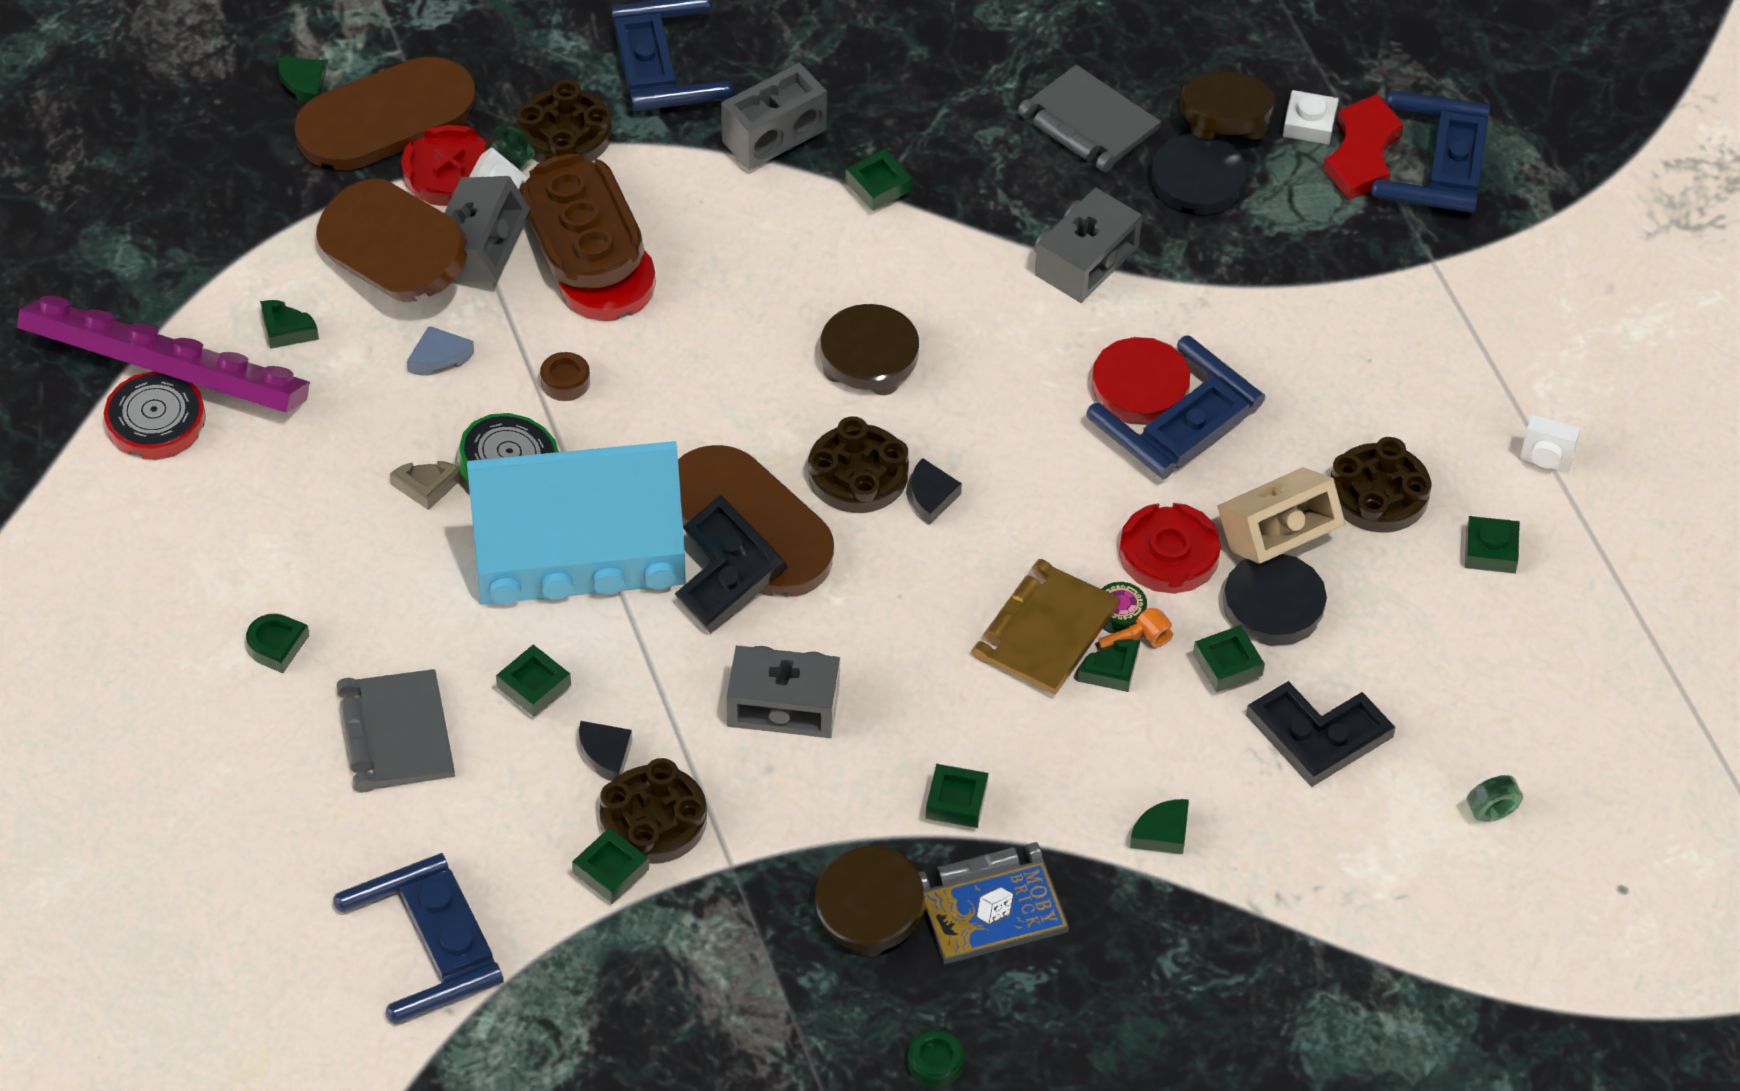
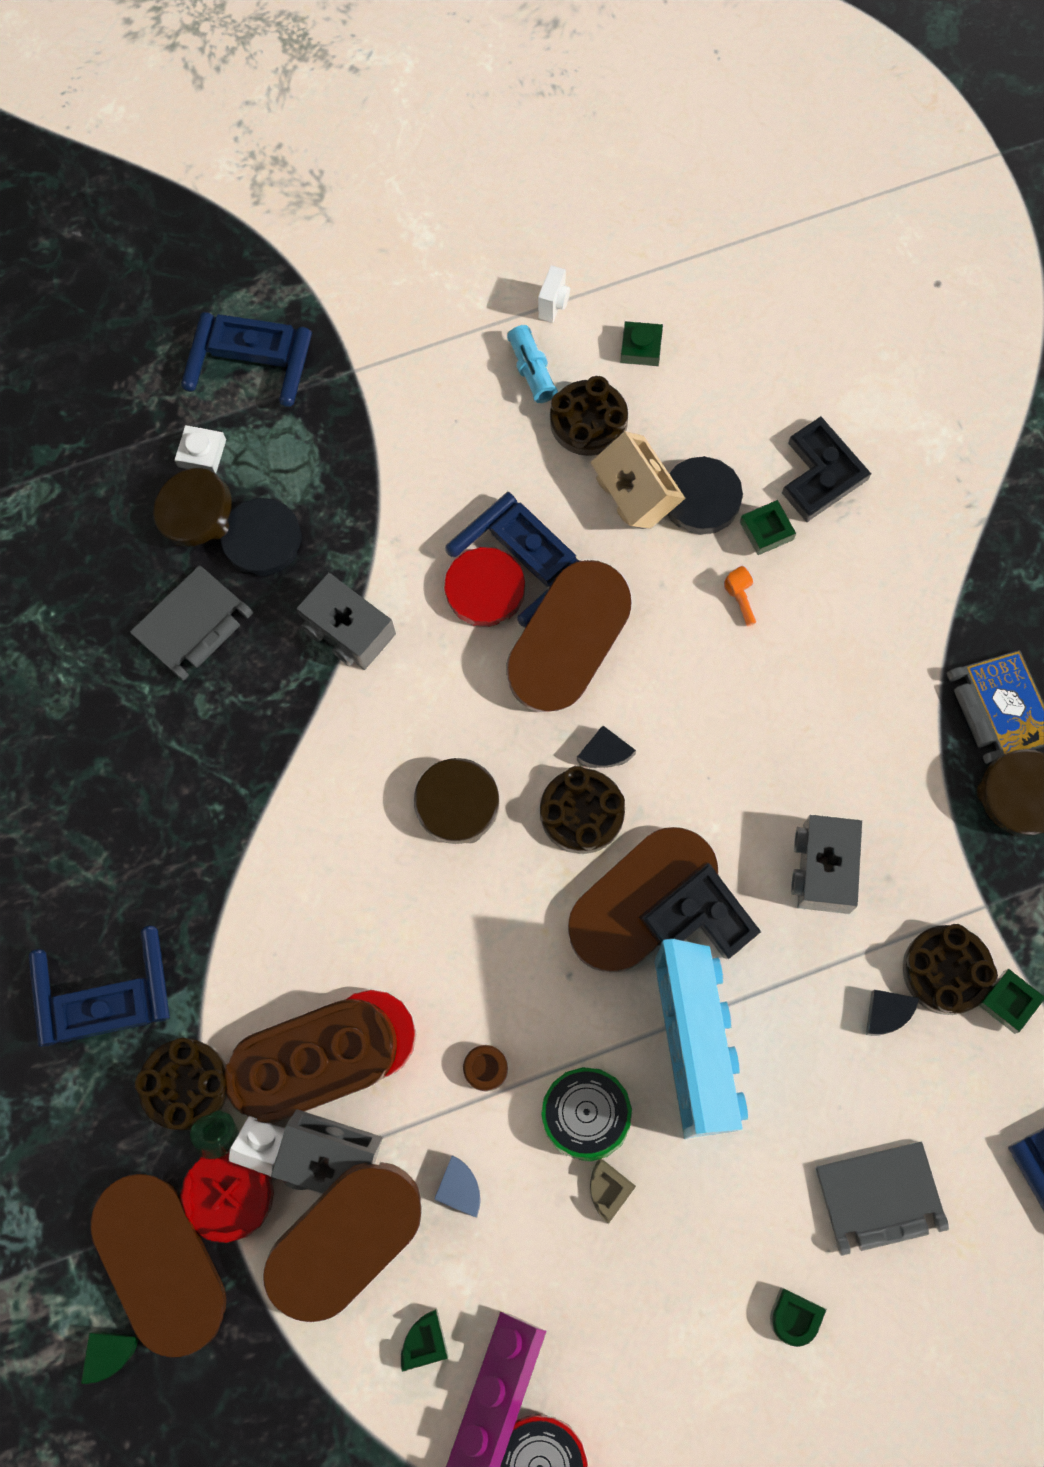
camera: 85 degrees left, 20 degrees up
(533, 680) = (830, 1076): dark green plate -> none
(774, 116) = (196, 884): dark grey brick -> none
(878, 179) = (264, 795): dark green plate -> none
(957, 795) = (915, 728): dark green plate -> none
(1046, 627) = (745, 660): pearl gold piece -> none
(1073, 449) = (568, 636): none -> reddish brown tile
(1111, 666) = (772, 614): dark green tile -> none
(1132, 605) = (717, 606): tile -> none
(1162, 827) = (923, 580): dark green tile -> none
(1170, 548) = (656, 569): red tile -> none
(1367, 132) = (250, 415): red tile -> none
(1449, 425) = (532, 364): none -> medium azure pin
(1495, 798) = (884, 351): clear green tile -> none

